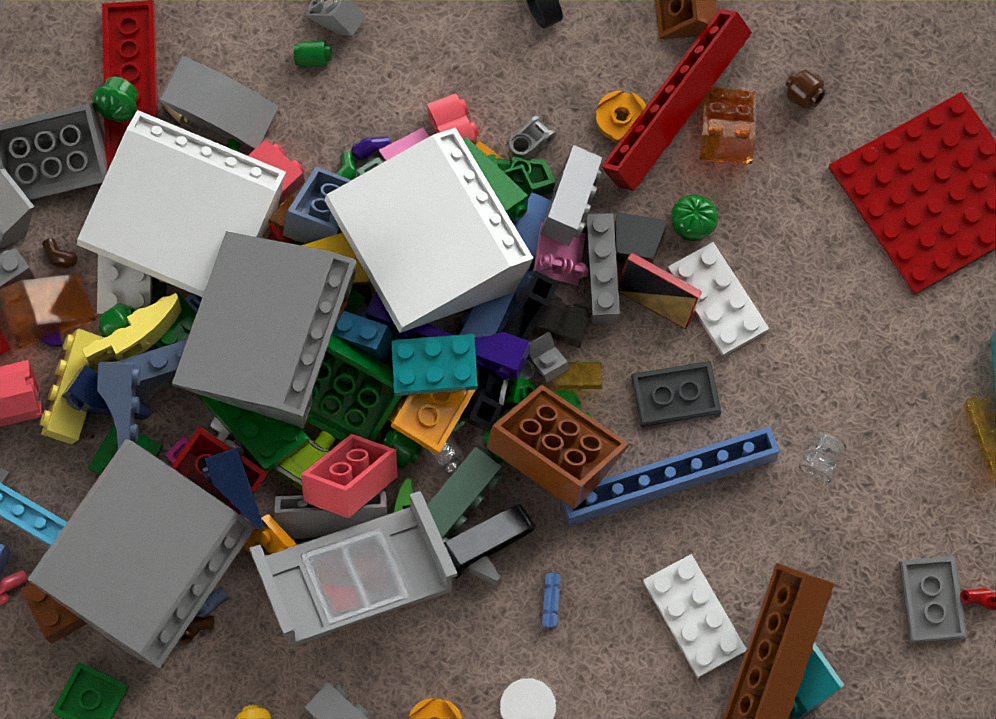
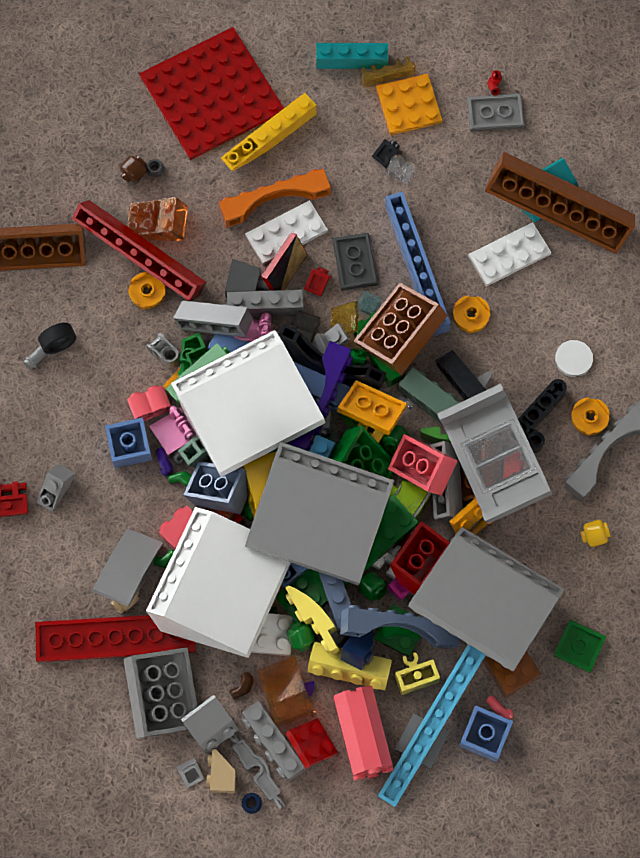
camera: 90 degrees left, 0 degrees up
(56, 473) = (416, 675): none -> light yellow brick
(116, 100) = (124, 640): green piece -> none
(186, 416) = (372, 586): none -> green head
(231, 480) = (429, 540): dark blue slope -> none
(312, 53) = (86, 503): green brick -> none
(393, 98) = (128, 443): none -> medium blue brick
(434, 364) = (346, 402): teal plate -> none
(438, 654) = (541, 412): none -> black beam
(551, 600) = (501, 342): medium blue axle -> none
(595, 541) = (471, 304): none -> light orange plate
(608, 411) = (368, 303): none -> clear light blue plate
(642, 341) = (317, 281): none -> red bracket
(694, 217) = (228, 243): green piece -> none
(749, 230) = (310, 185): none -> orange arch
(811, 112) = (155, 163): none -> dark grey plate
(855, 436) = (386, 151): none -> black bracket
(873, 271) = (271, 132): none -> yellow slope
(938, 470) = (408, 104): none -> light orange plate

